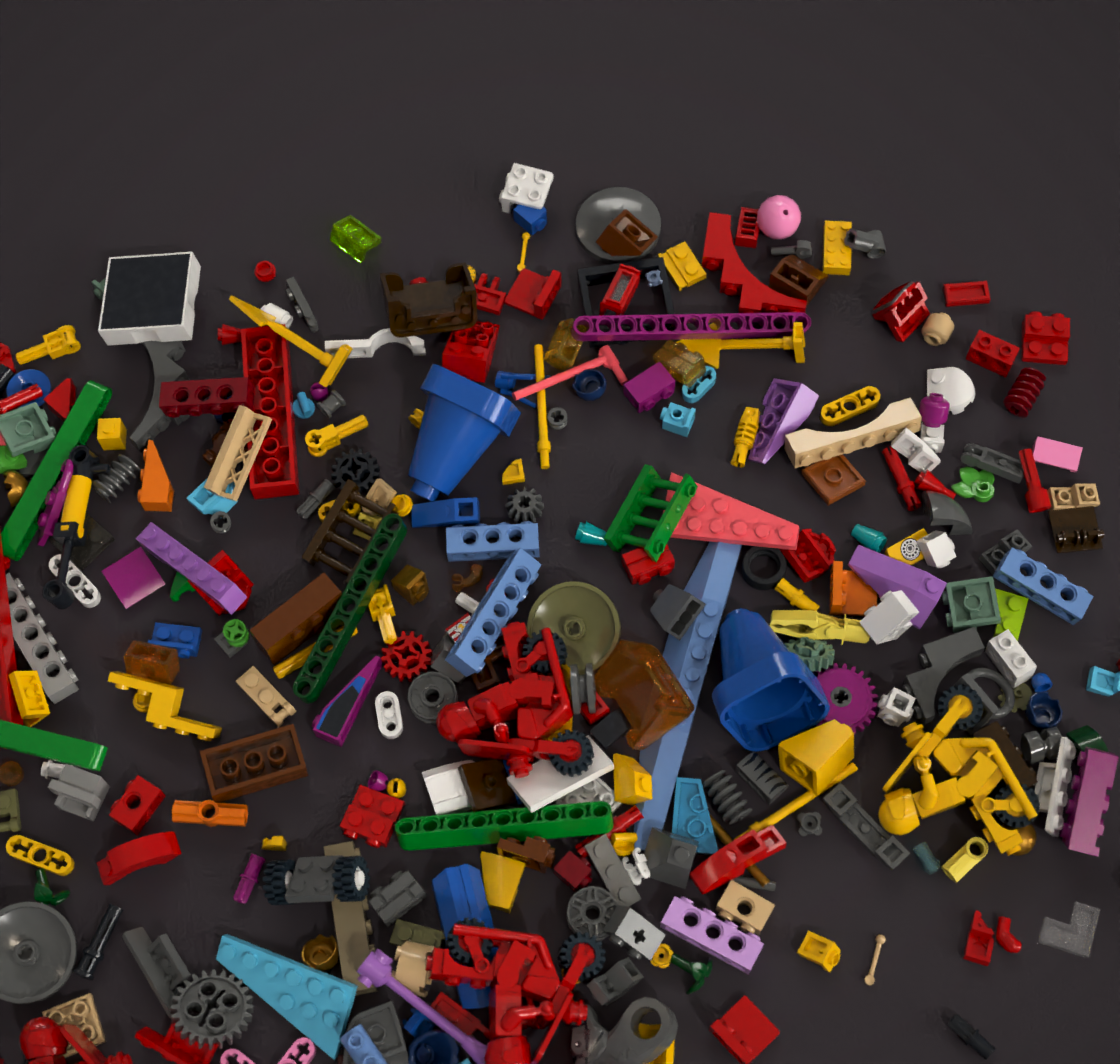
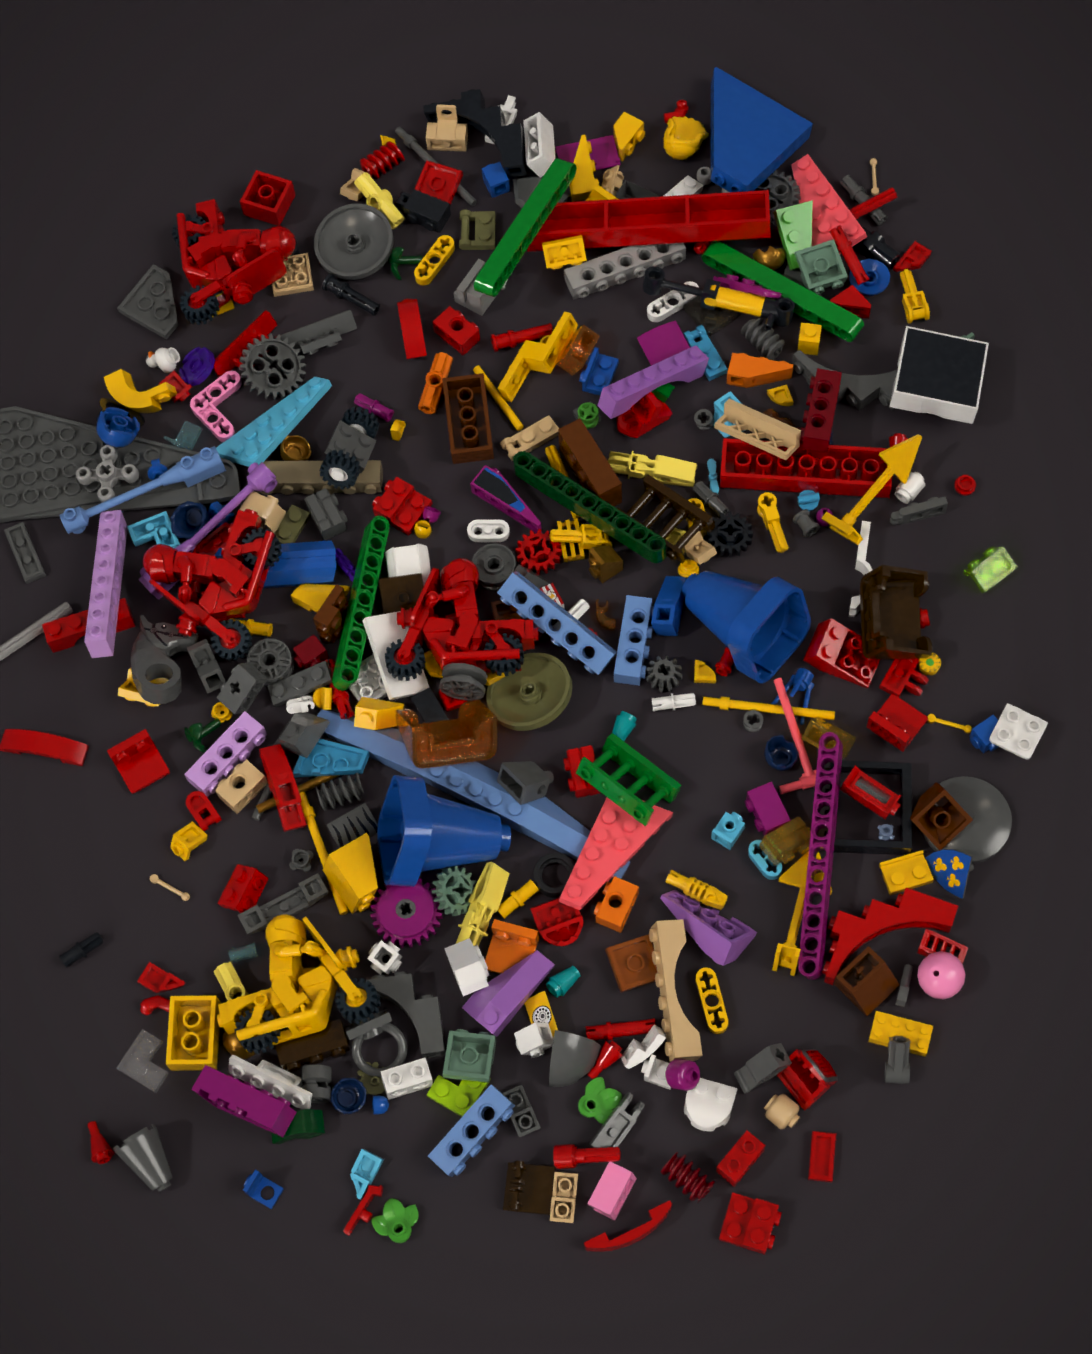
camera: 105 degrees right, 0 degrees up
(129, 536) = (715, 365): none -> dark azure plate
(140, 740) = (513, 338): none -> red pin
(181, 454) = (781, 395): none -> yellow tile
(222, 739) = (500, 400): none -> yellow bar
(287, 503) = (711, 464): none -> medium azure piece
(289, 551) = (663, 468): none -> light yellow arm
(371, 625) = (568, 524): none -> yellow tile
(459, 857) = (345, 564): none -> dark purple axle
(500, 452) = (724, 666): none -> red pin
(553, 493) = (673, 701): none -> white axle
(553, 943) = (257, 628): none -> yellow pin
(674, 225) = (951, 869): none -> blue shield
(774, 951) = (198, 804): none -> red plate
(789, 497) = (616, 917): none -> orange brick
(859, 877) = (243, 889): none -> red bracket
(908, 344) = (762, 1067): none -> dark grey piece
(1030, 882) = (192, 1033): none -> yellow brick
(1089, 428) = (601, 1242): none -> red slope

